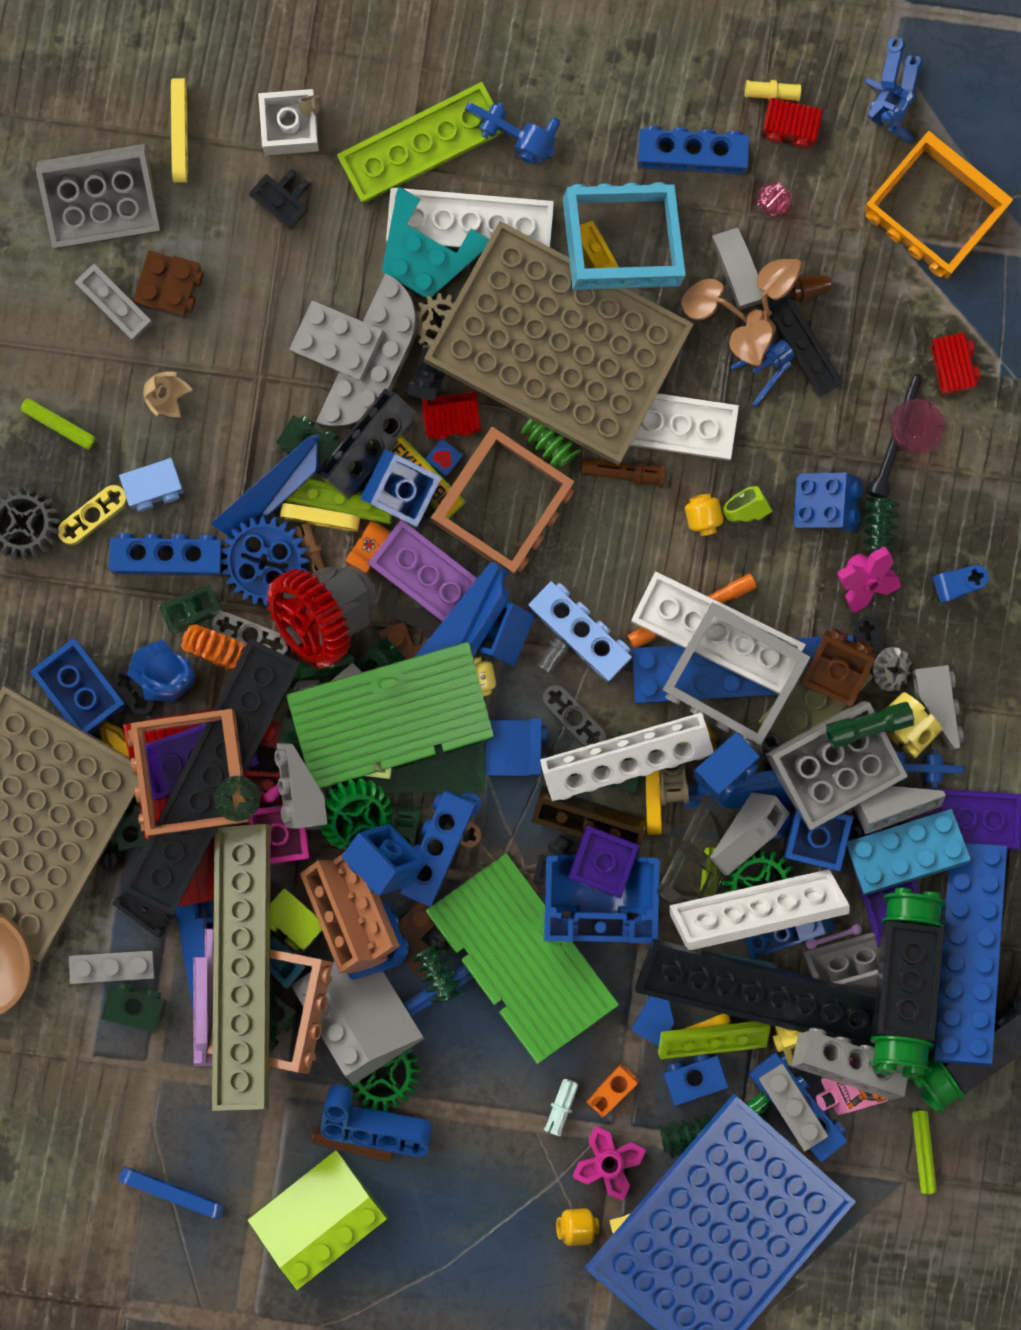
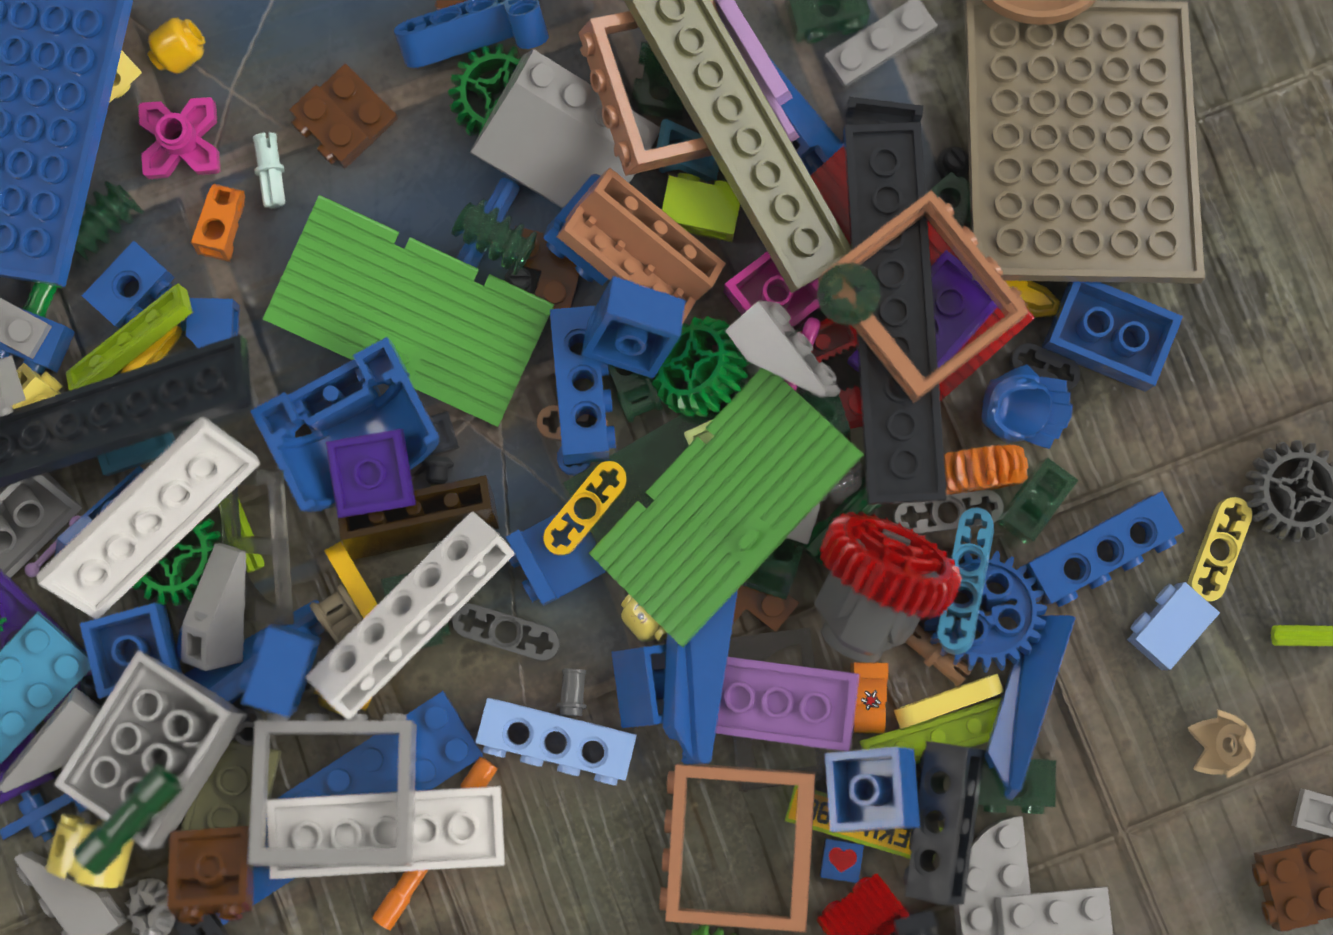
camera: 145 degrees right, 0 degrees up
(262, 580) = (970, 581): none -> dark azure beam
(469, 760) = (610, 492): none -> yellow beam
(493, 1117) = (342, 116): none -> reddish brown plate

